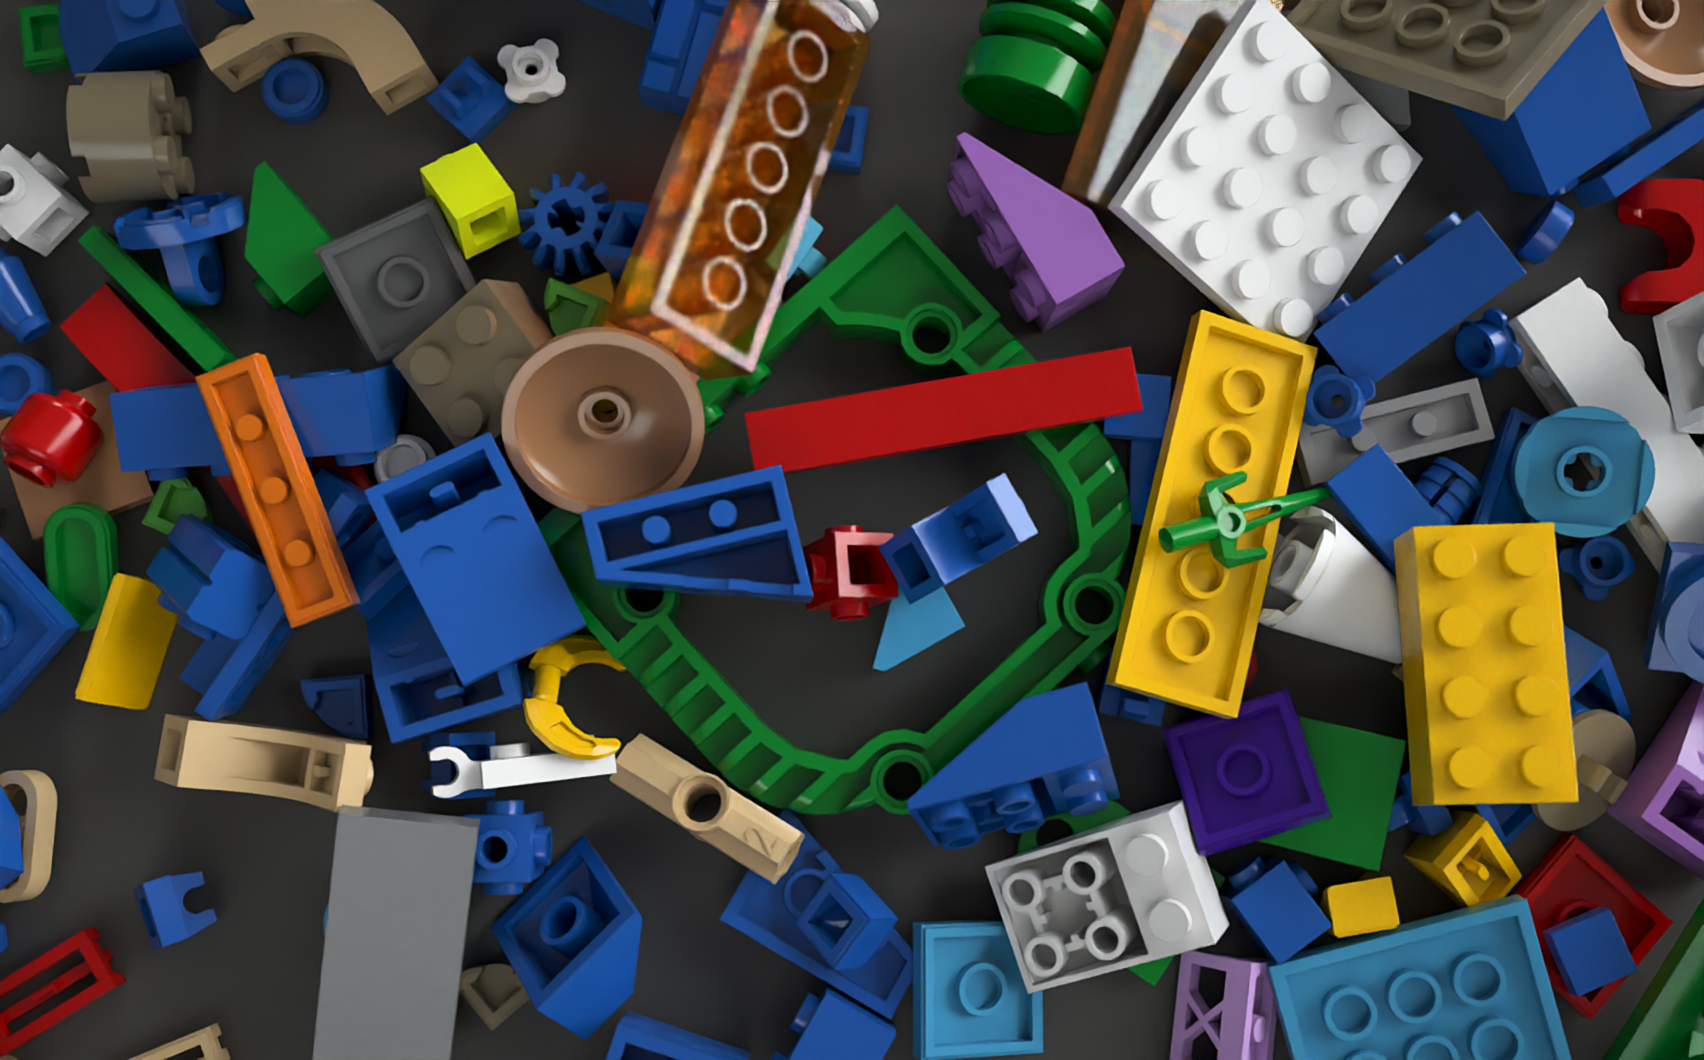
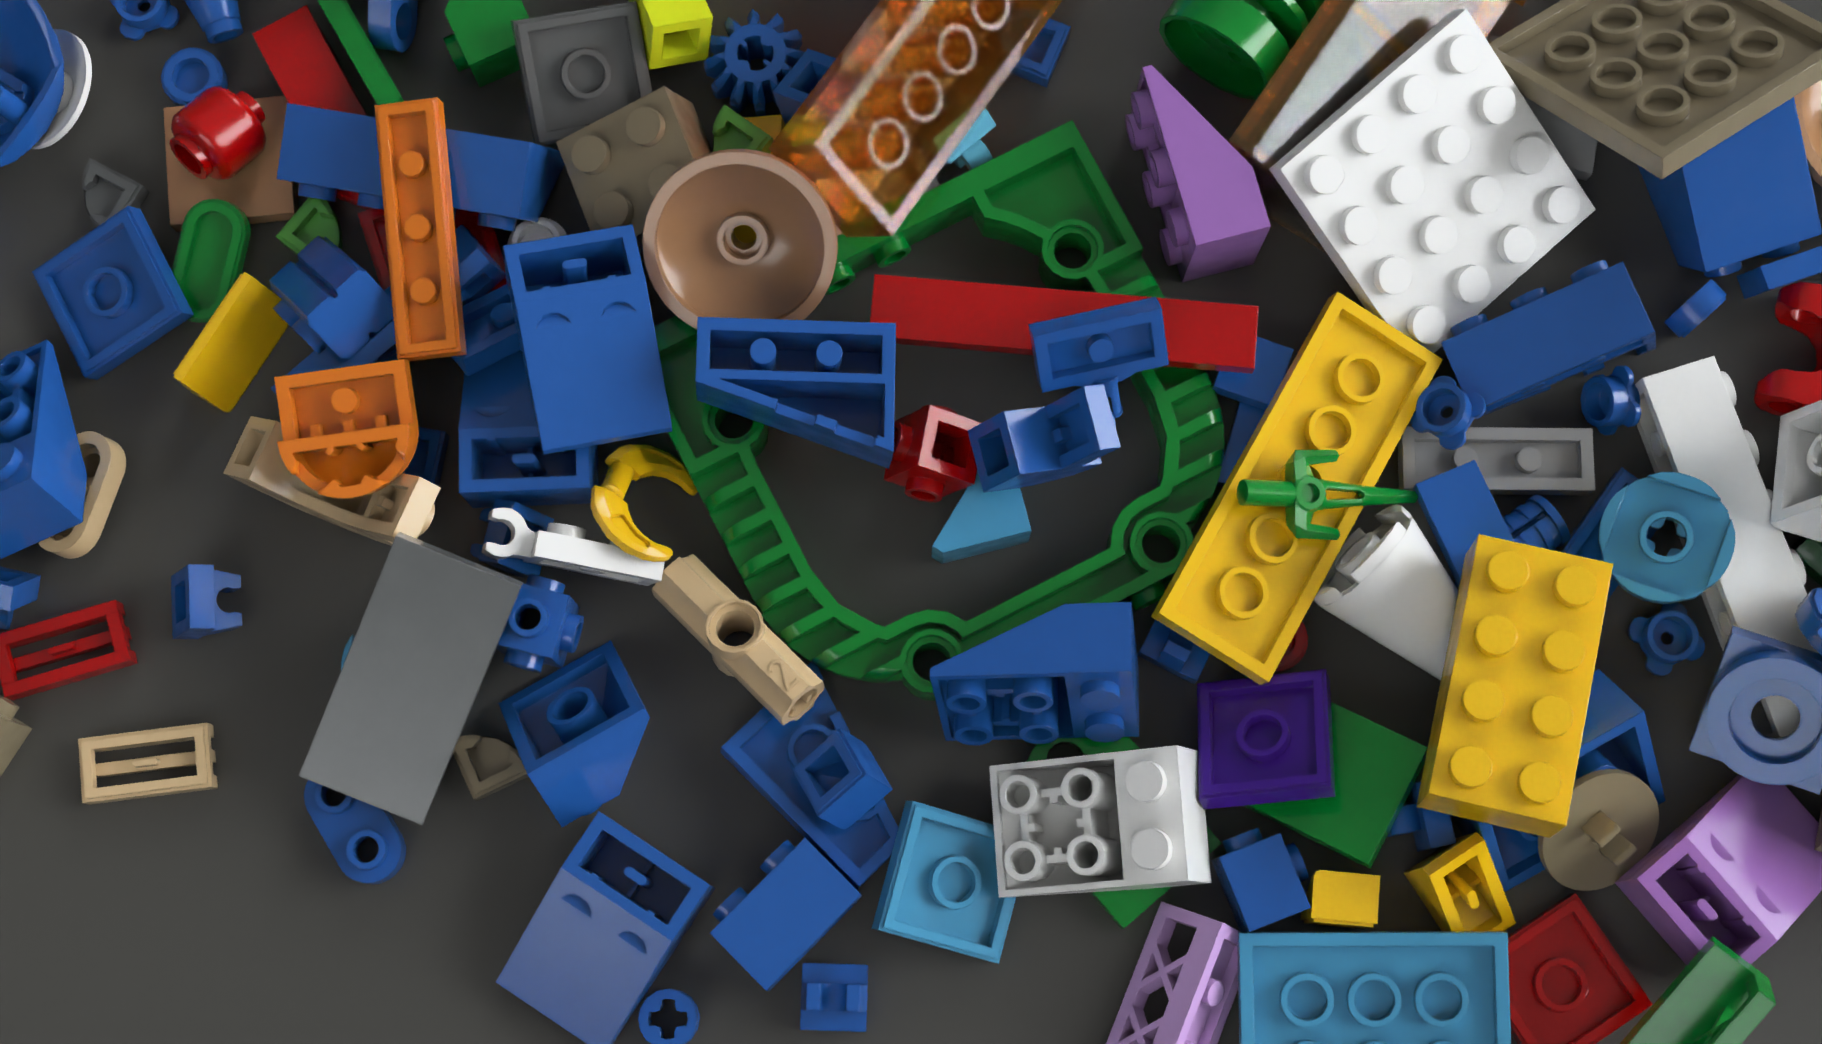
camera: 15 degrees right, 5 degrees down
(261, 710) = (348, 427): none -> orange slope
(988, 432) = (1100, 347): none -> blue plate
(1589, 951) = (1559, 1005): blue tile -> none

